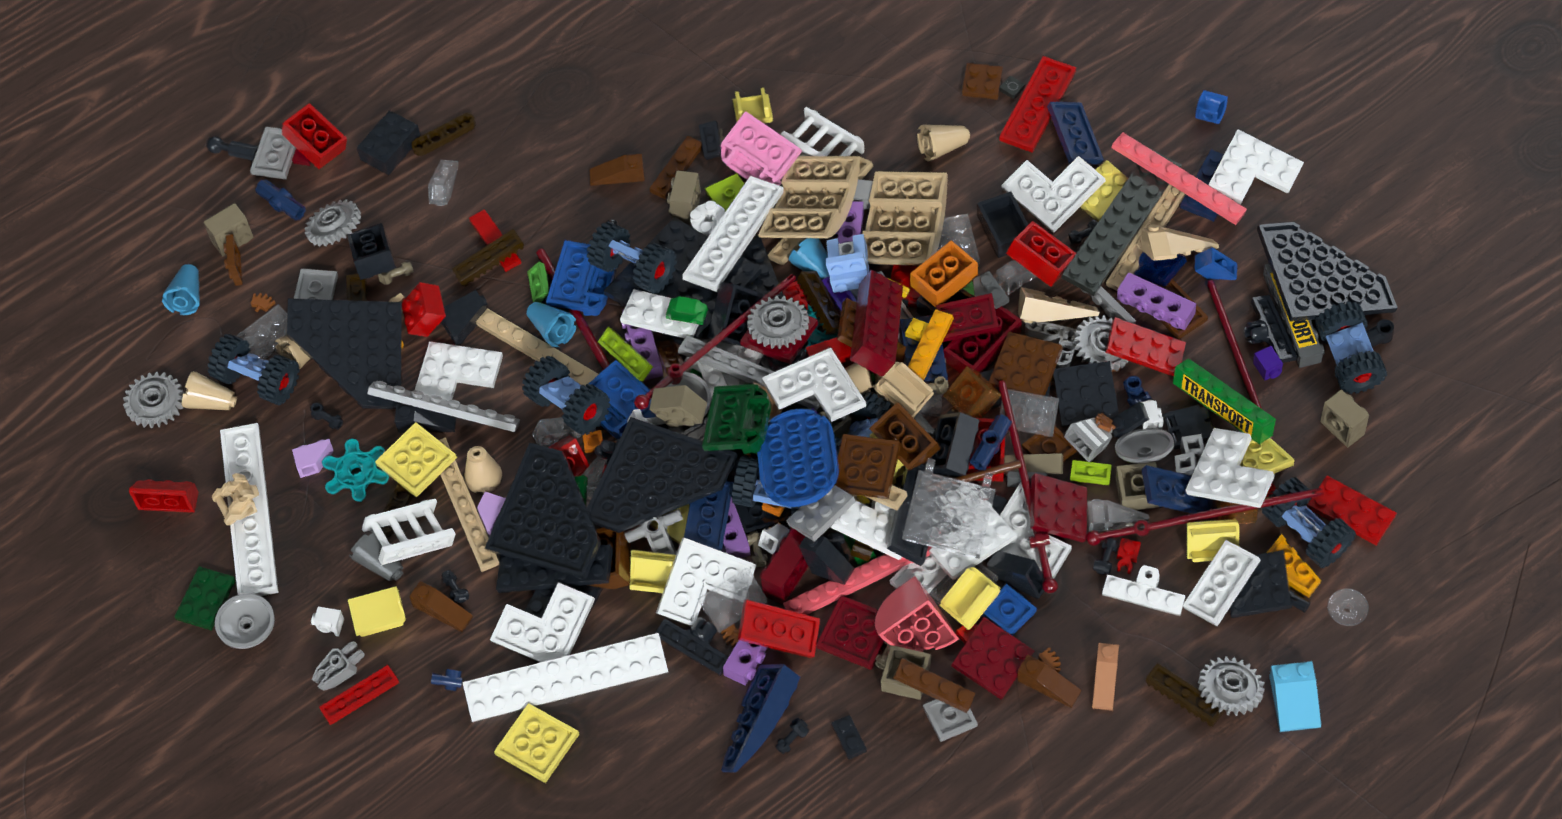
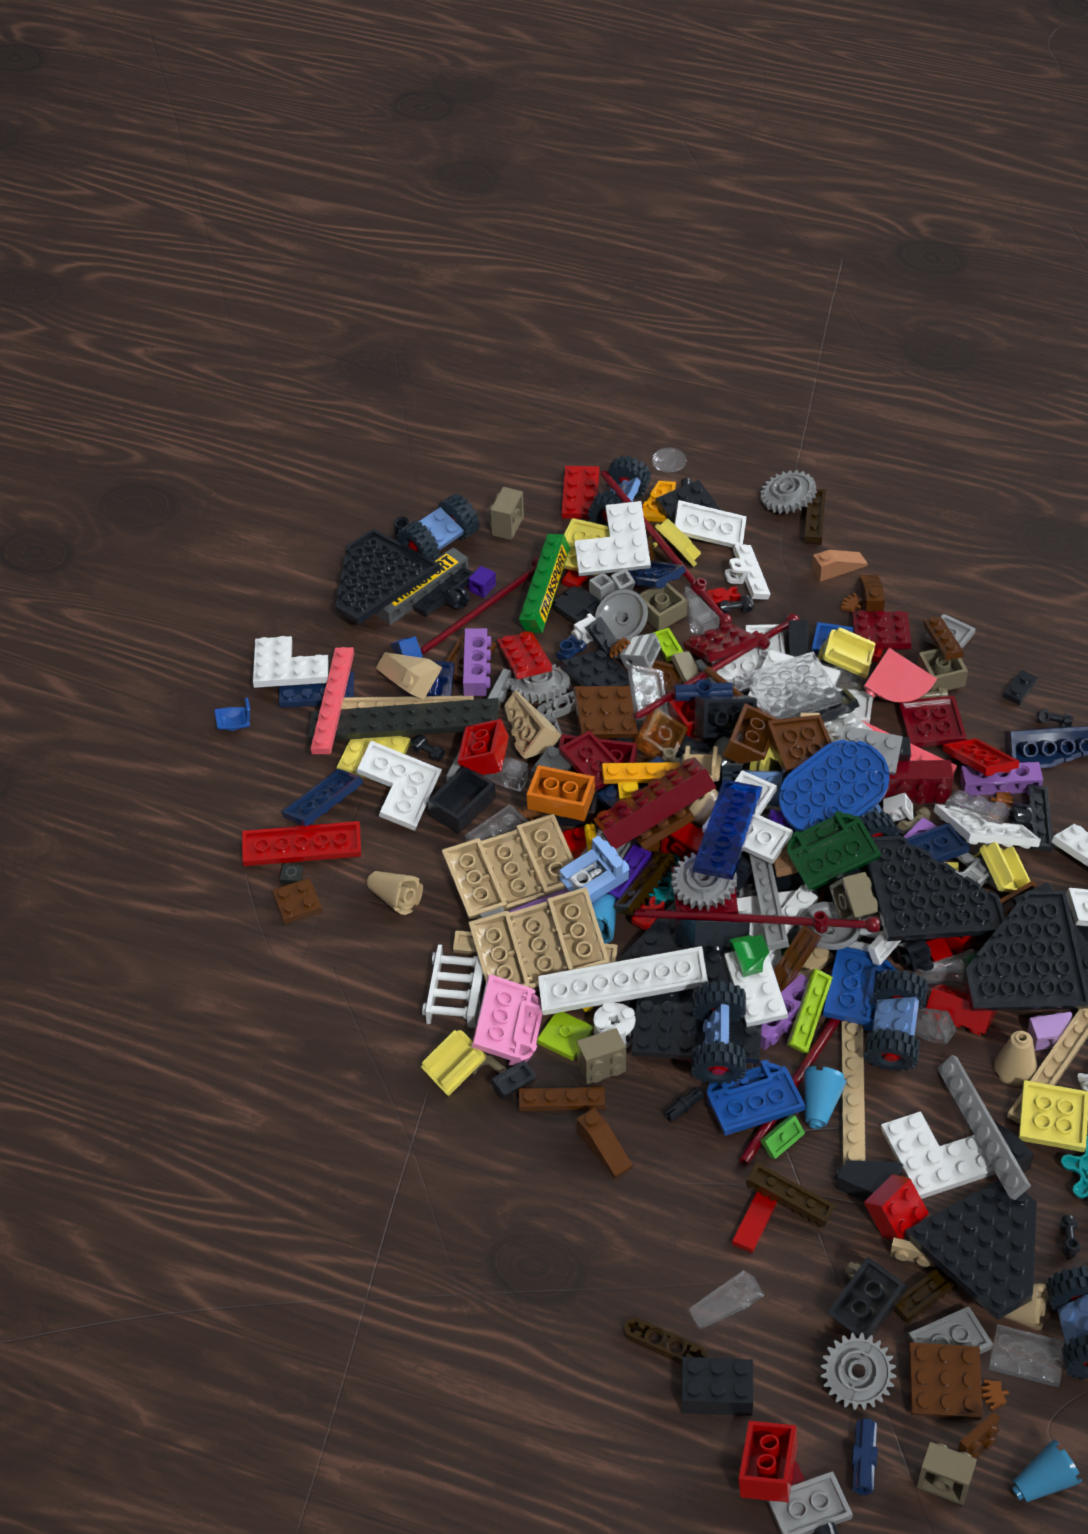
camera: 125 degrees left, 10 degrees down
(288, 271) = (945, 1380): none -> reddish brown plate
(805, 350) = (727, 829): none -> clear blue plate
(1295, 696) = (762, 462): medium azure slope -> none

